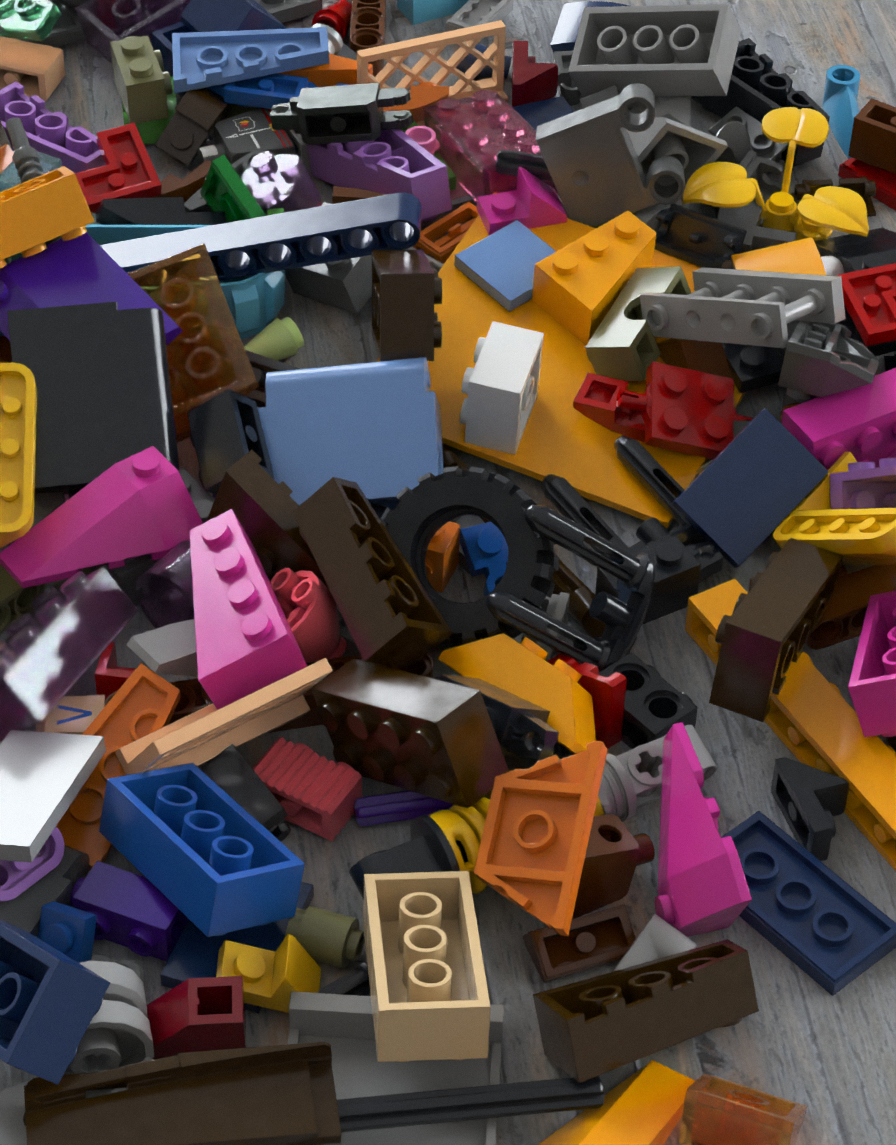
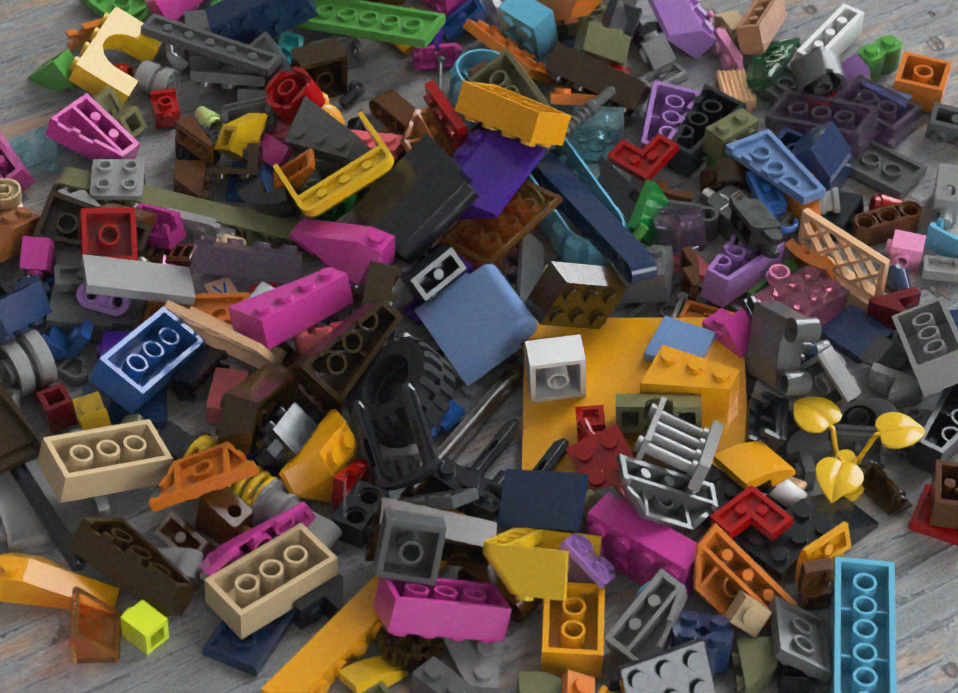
camera: 65 degrees right, 0 degrees up
(75, 89) = (707, 109): none -> black wedge
(426, 21) = (906, 249): none -> bright pink brick
(692, 610) = (443, 500): none -> dark grey tile
(766, 1044) = (144, 627): none -> neon yellow brick
(780, 841) = (269, 580): none -> tan brick
(837, 626) = (409, 546): none -> dark grey brick

